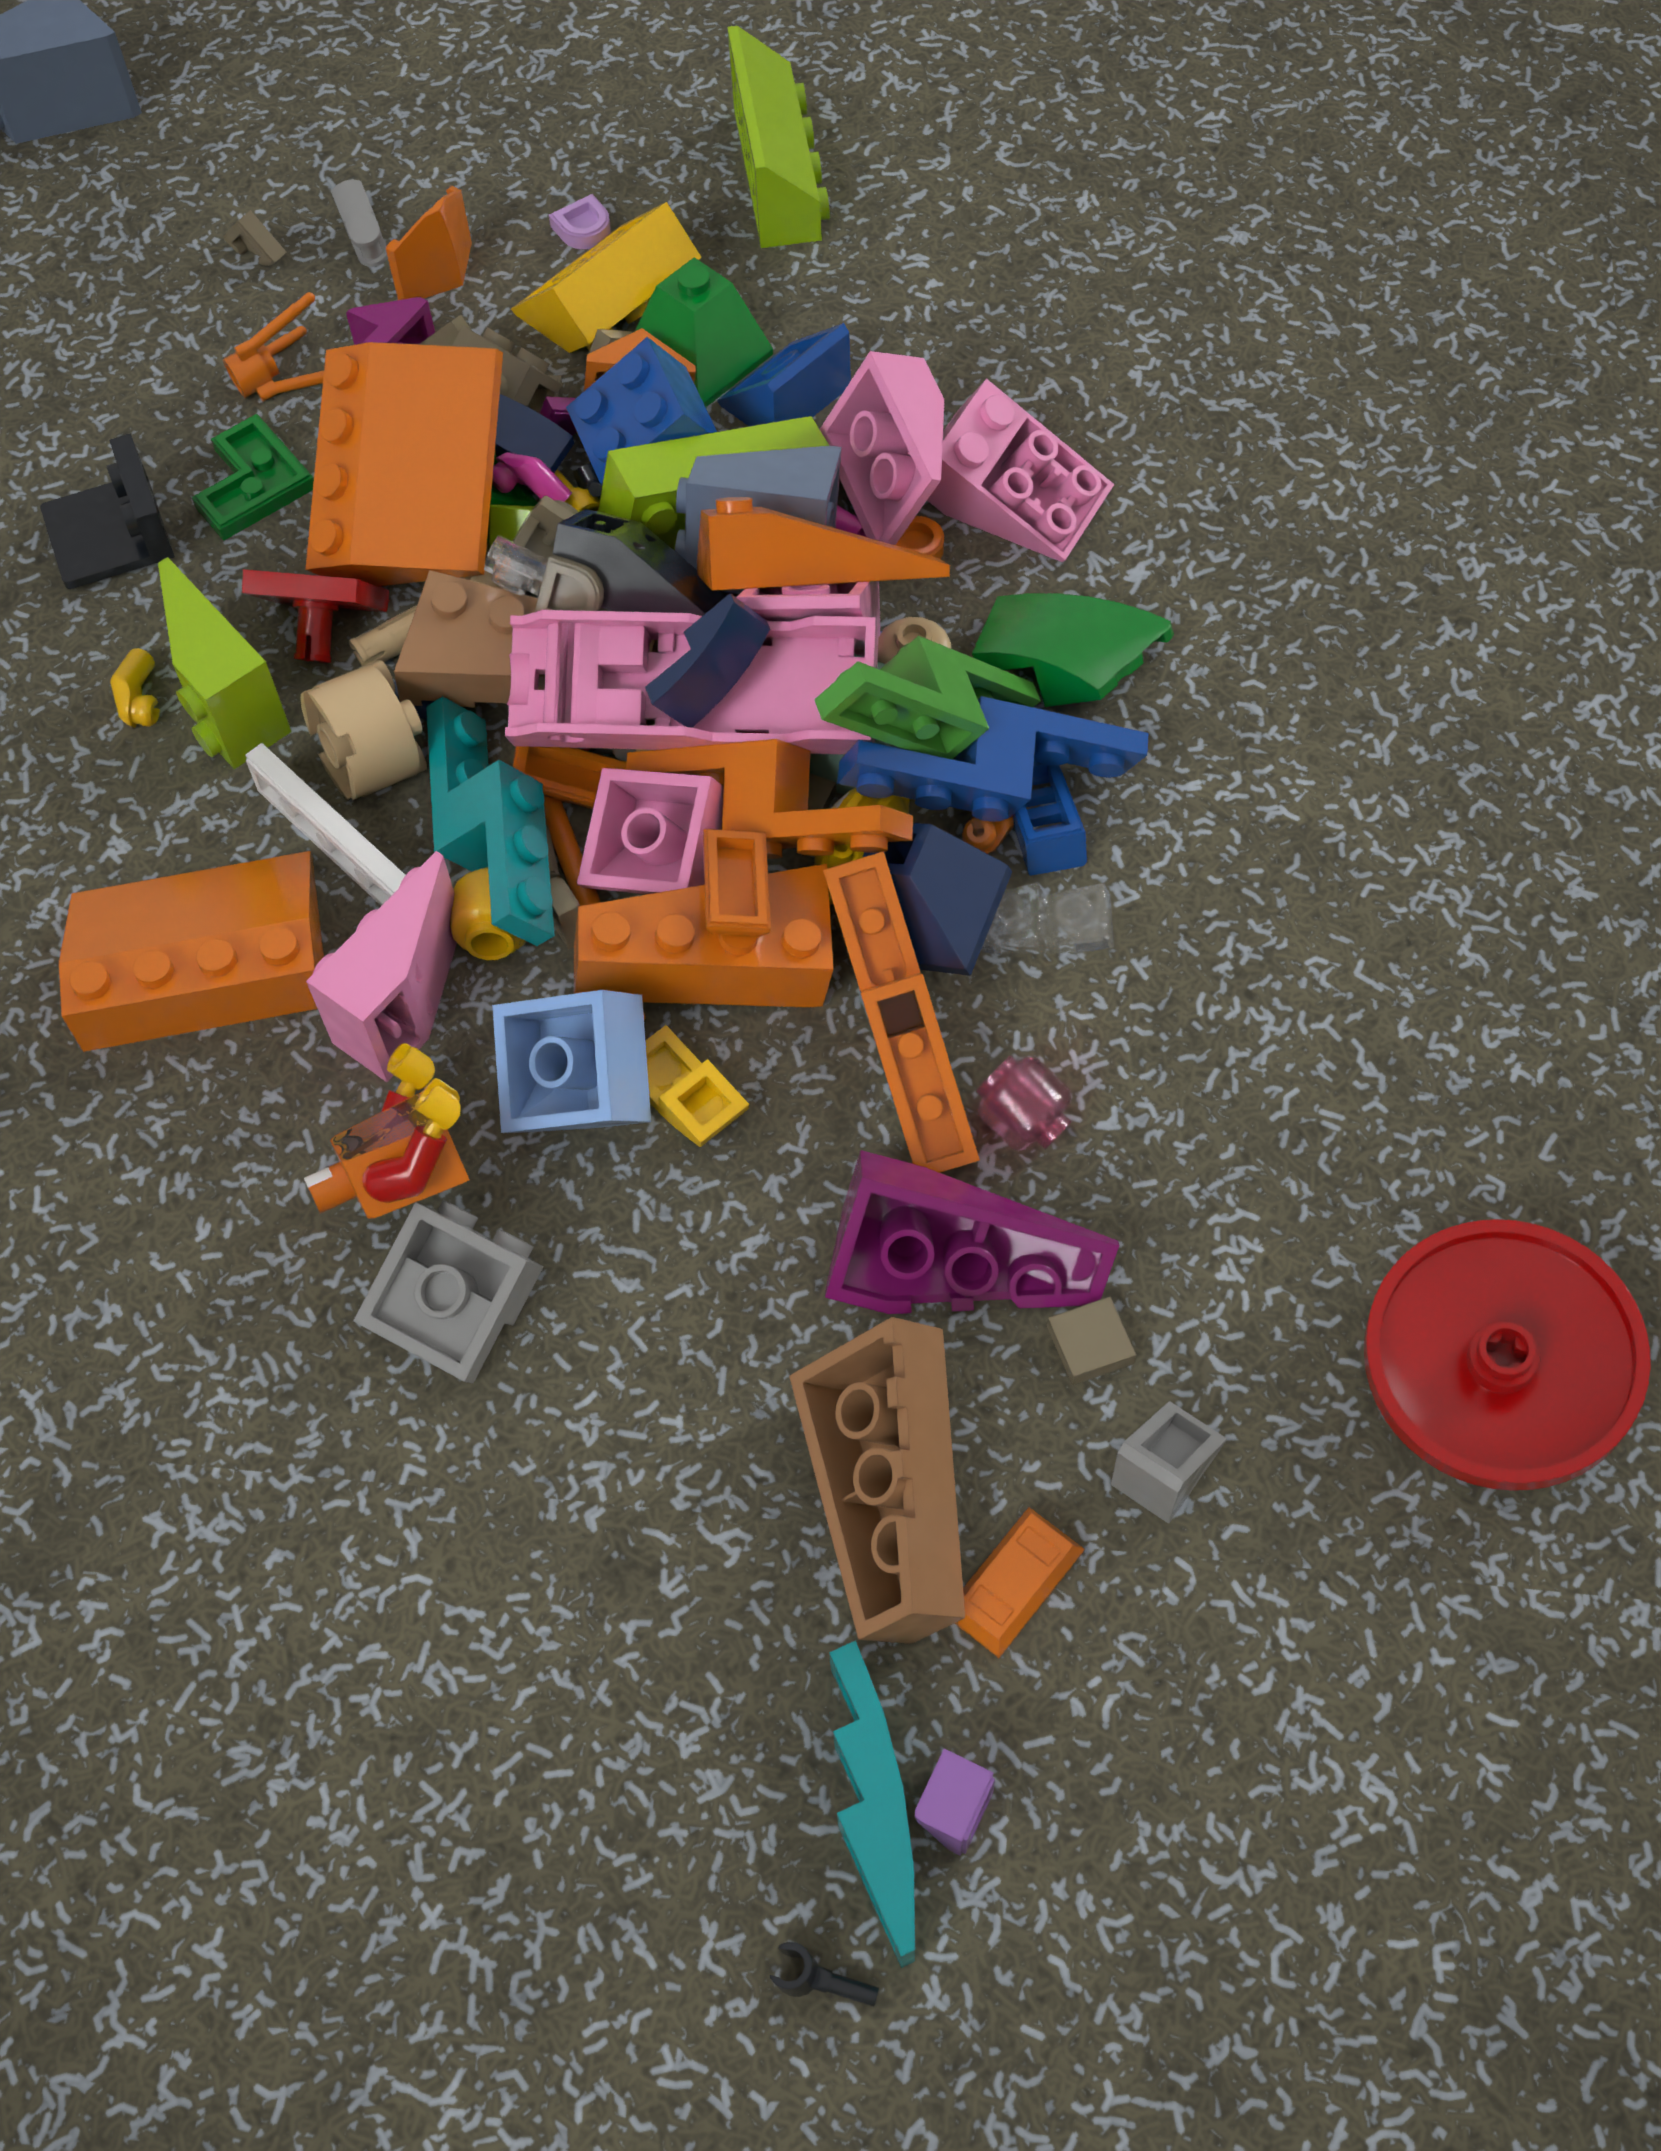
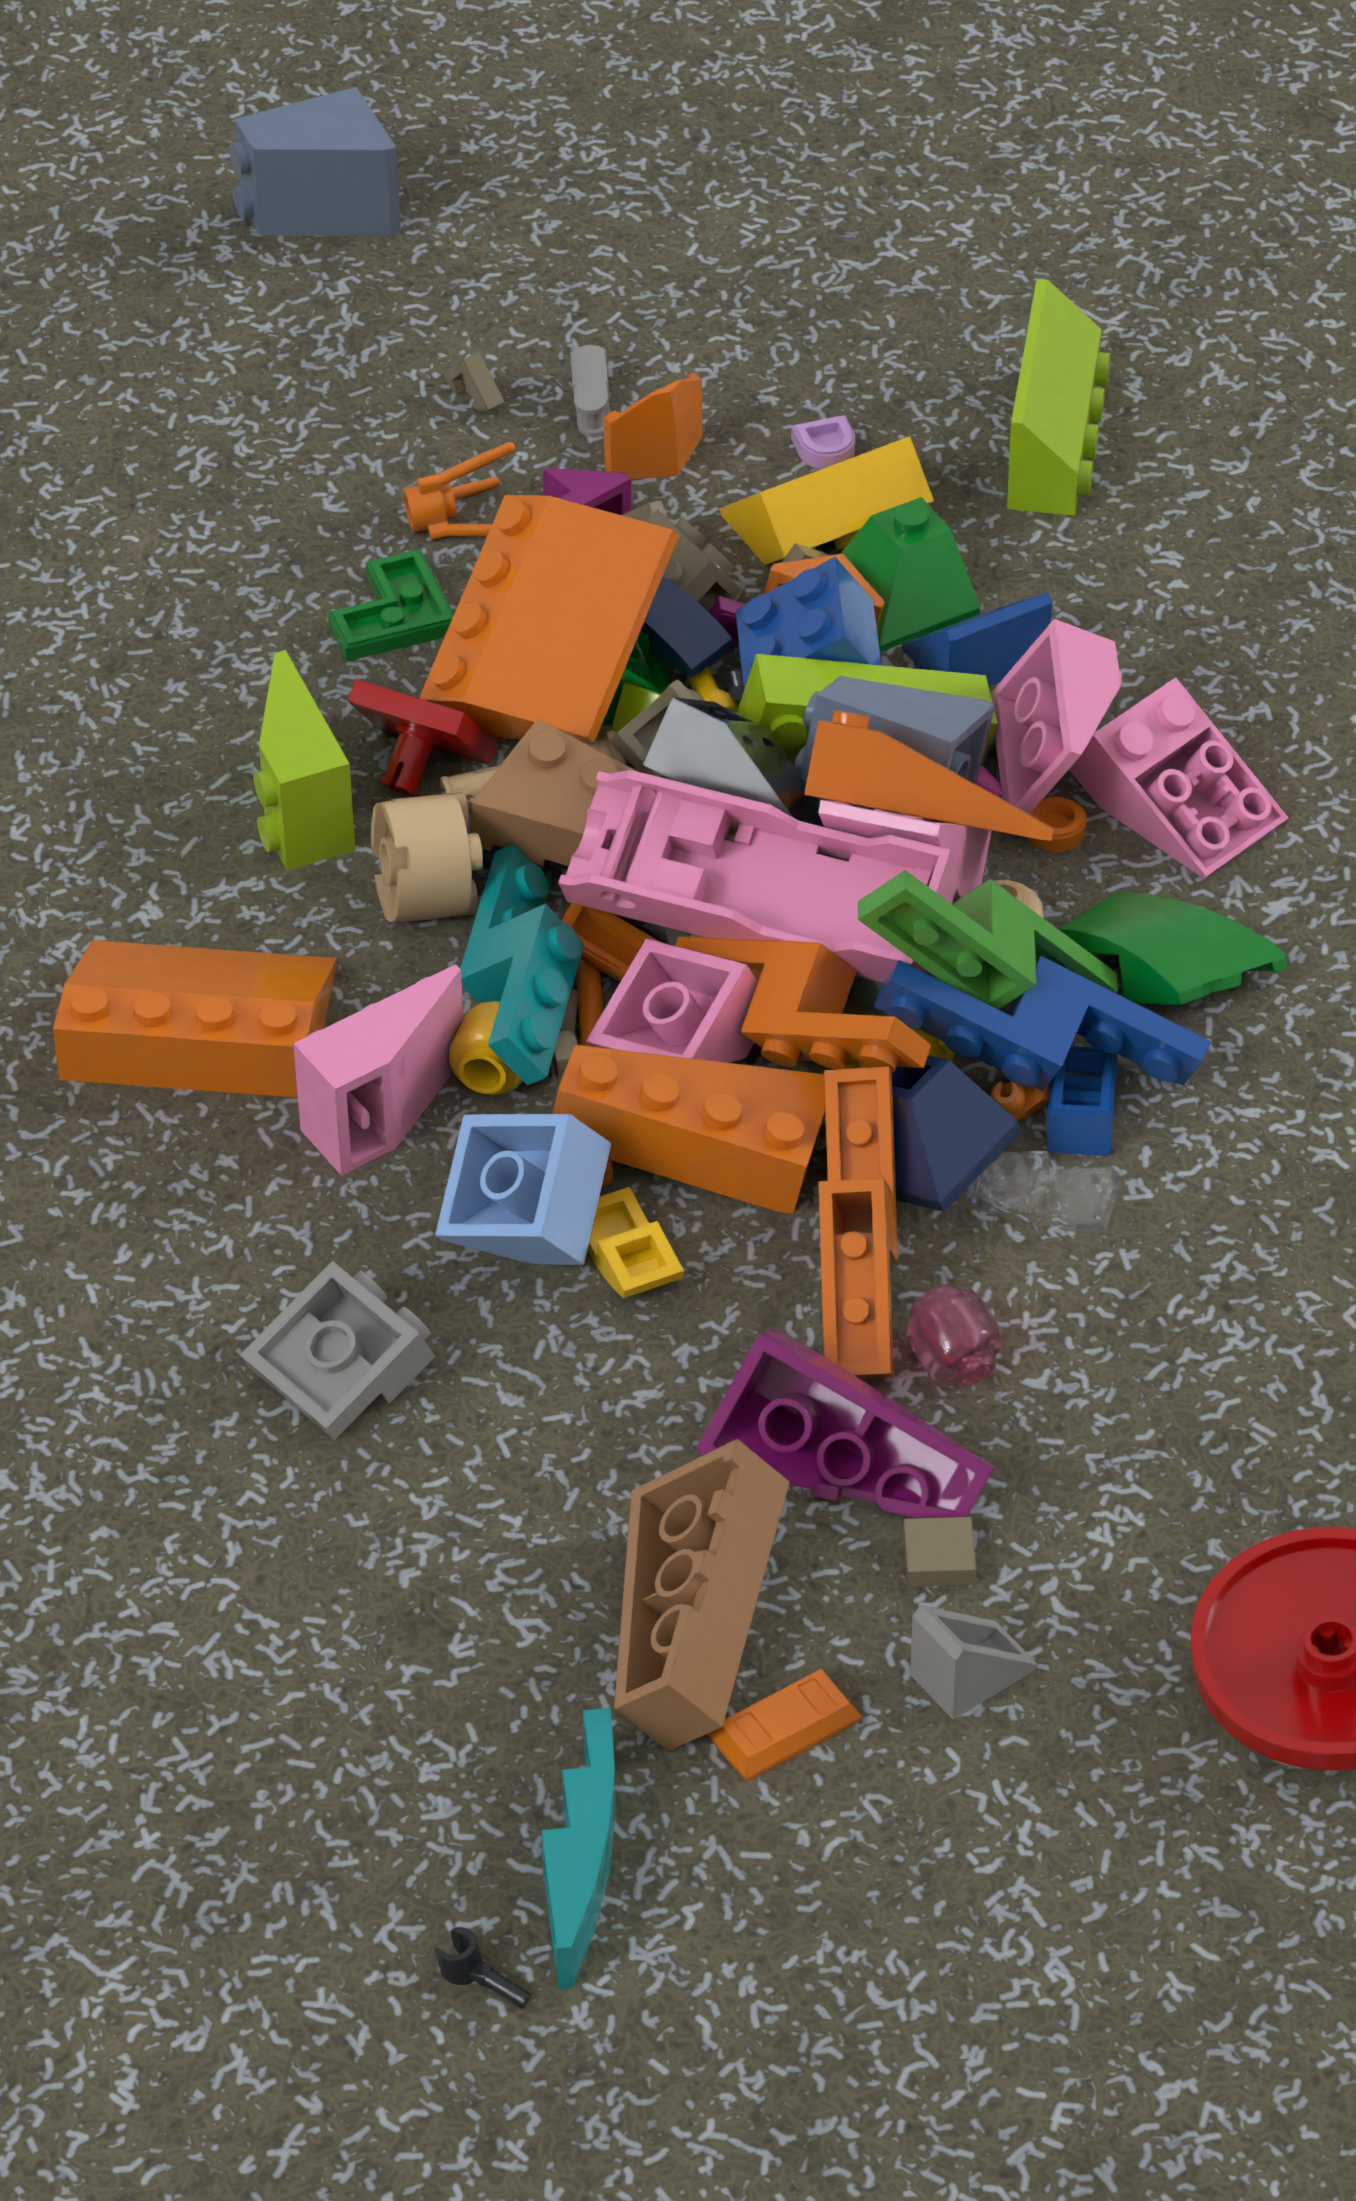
camera: 15 degrees right, 15 degrees down
(109, 525) = (236, 620): black bracket -> none
(127, 691) = (206, 766): yellow arm -> none
(323, 825) = (352, 926): white tile -> none
(401, 1150) = (331, 1220): torso -> none
(515, 567) = (621, 734): clear slope -> none
(530, 472) = (672, 660): dark pink arm -> none
(569, 587) = (667, 758): dark tan tile -> none
(720, 653) = (787, 849): dark blue slope -> none
(736, 883) = (735, 1062): orange tile -> none
(955, 1801) = (656, 1863): medium lavender slope -> none

